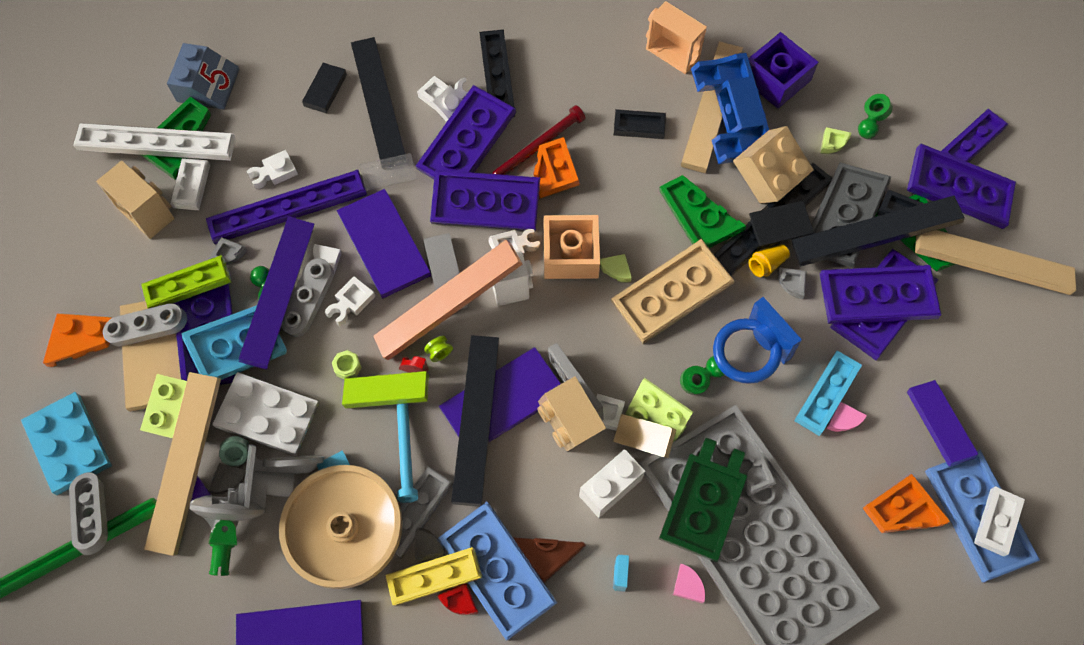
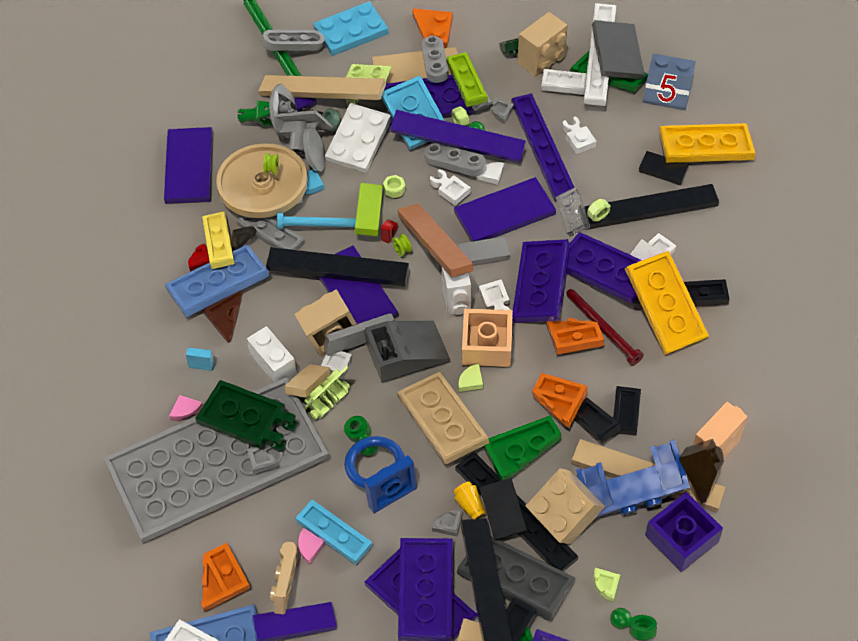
camera: 95 degrees right, 10 degrees down
(125, 239) = (510, 46): none -> dark green plate
(155, 119) = (618, 49): none -> dark grey tile
(242, 293) = (460, 116): none -> yellowish green tile
(293, 46) = (706, 143): none -> yellow tile
(324, 509) = (271, 163): none -> lime bush
(393, 140) = (598, 210): none -> yellowish green tile
(514, 79) = (666, 302): none -> yellow tile
(588, 333) = (404, 347): none -> dark grey slope
(636, 178) = (559, 396): none -> orange wing
(658, 148) = (596, 420): none -> black tile
(722, 39) = (702, 465): none -> dark brown slope
(898, 433) = (284, 576): none -> tan hinge

